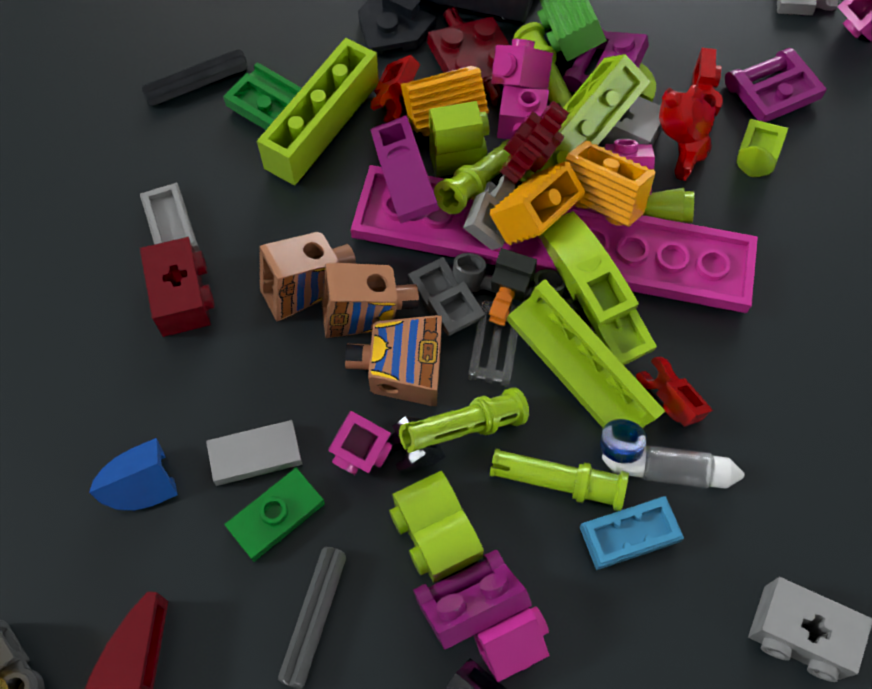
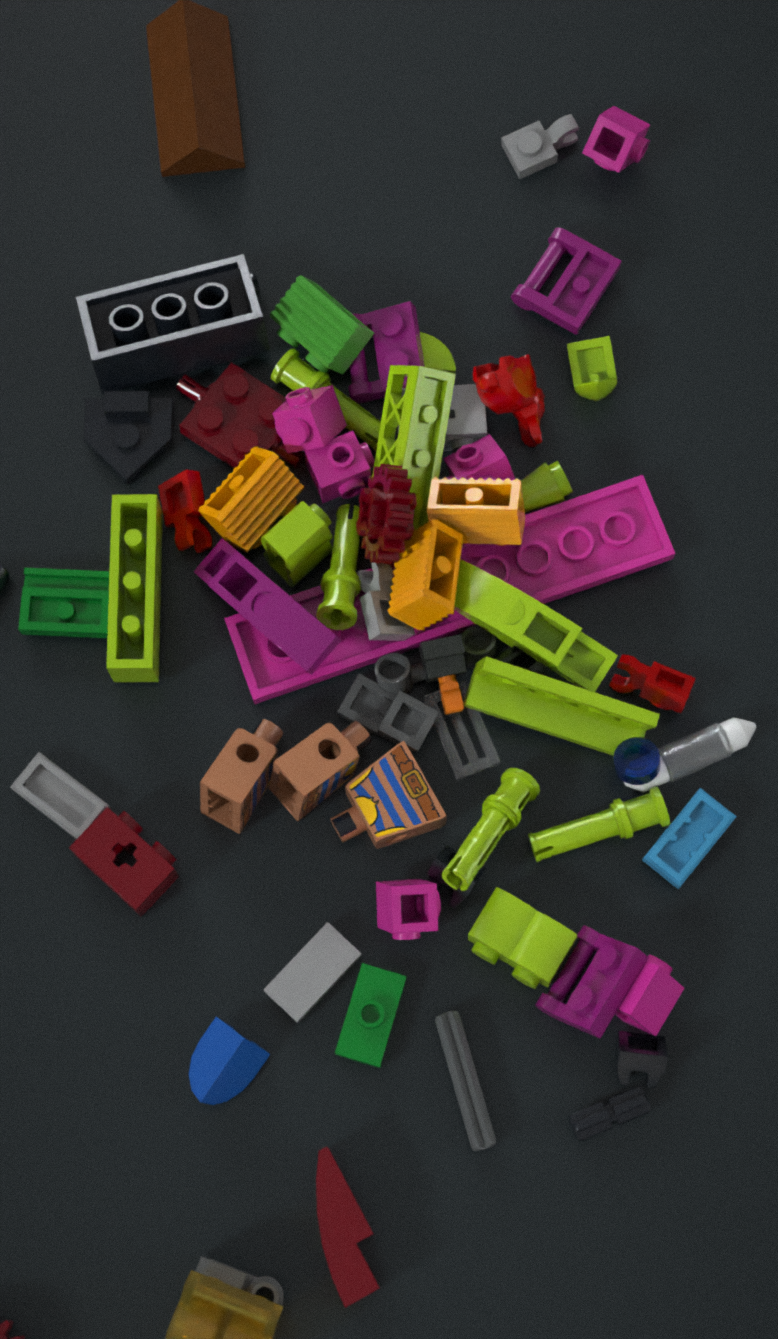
camera: 30 degrees left, 10 degrees up
(707, 77) = (495, 315): red plate -> none

